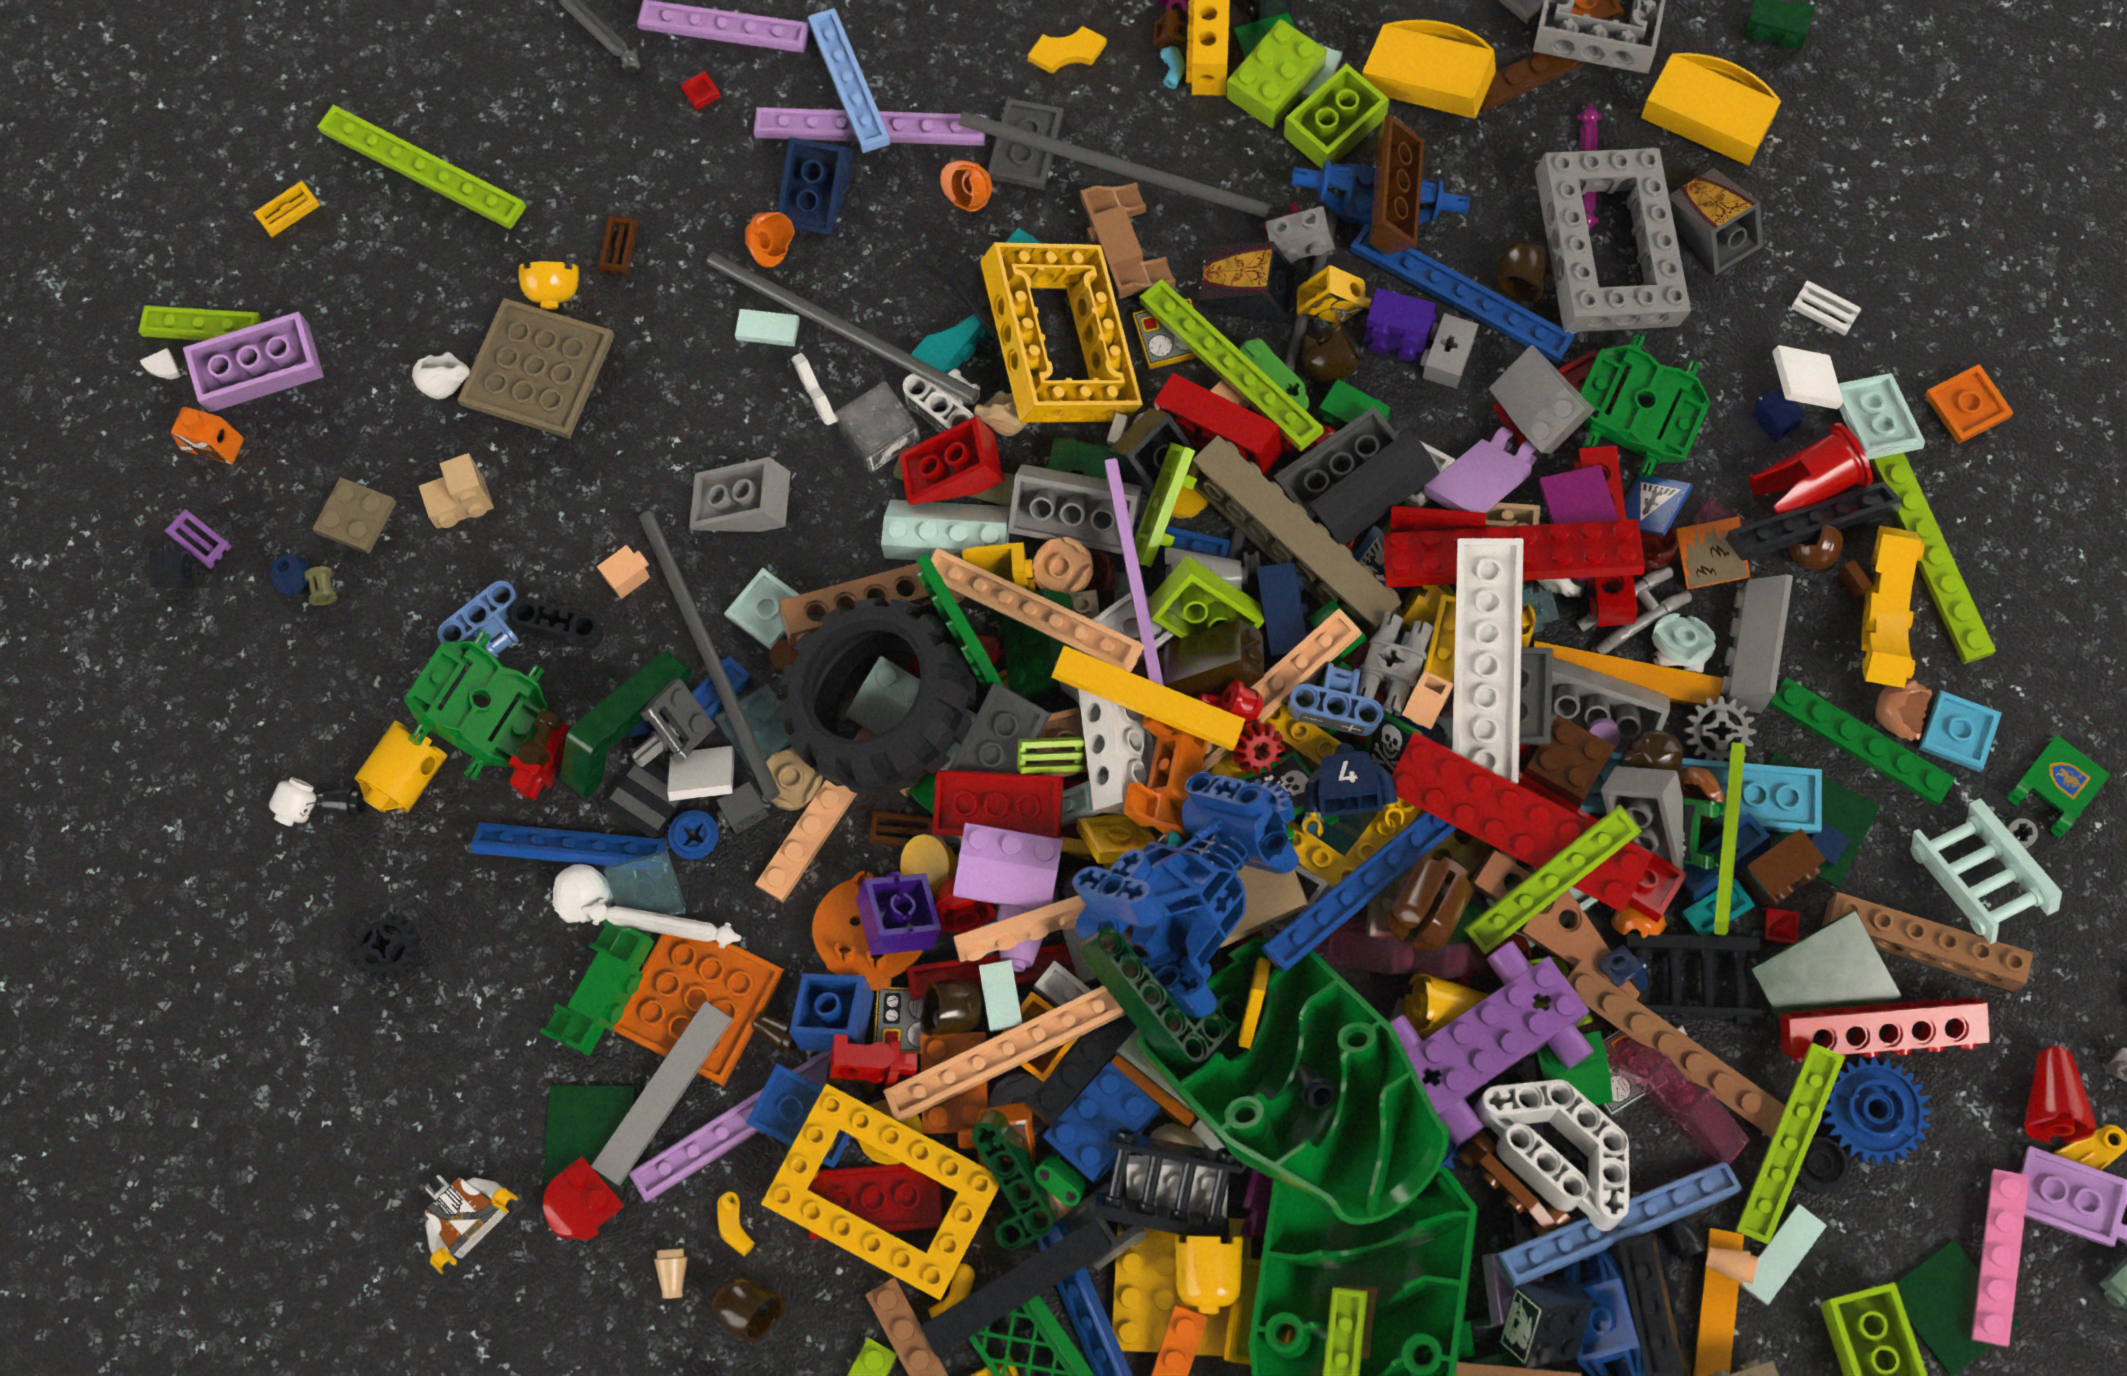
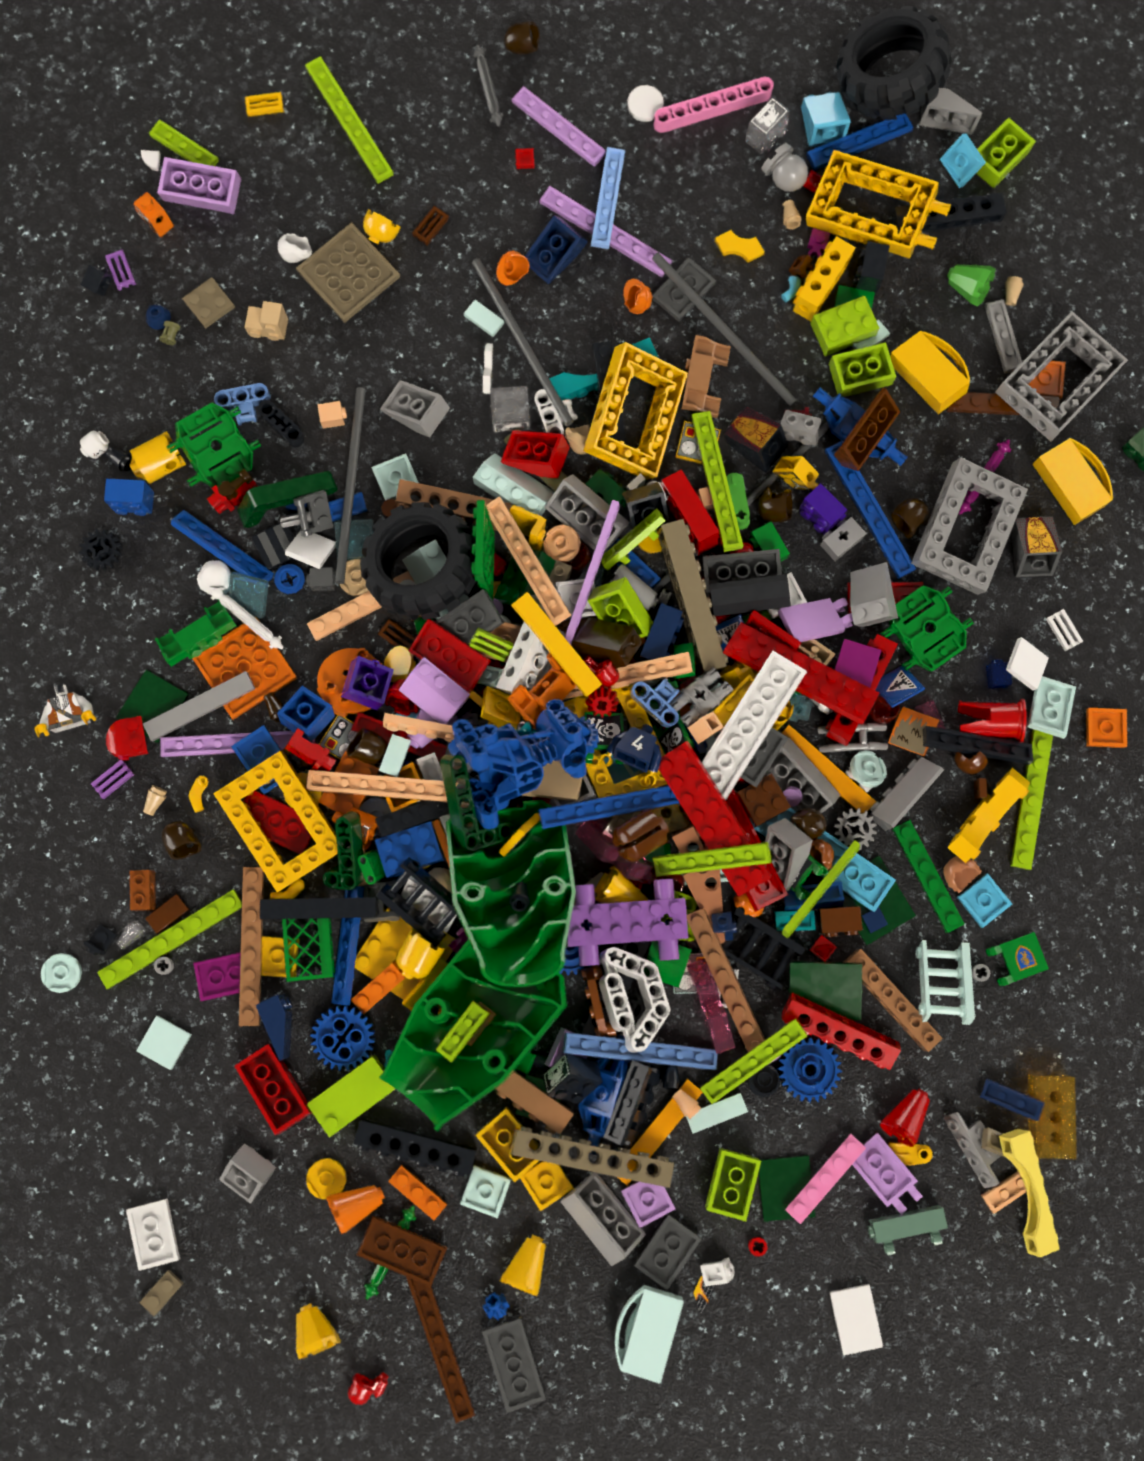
camera: 20 degrees right, 10 degrees up
(388, 845) = (129, 496): none -> blue brick
(577, 1272) = (105, 775): none -> medium lavender tile

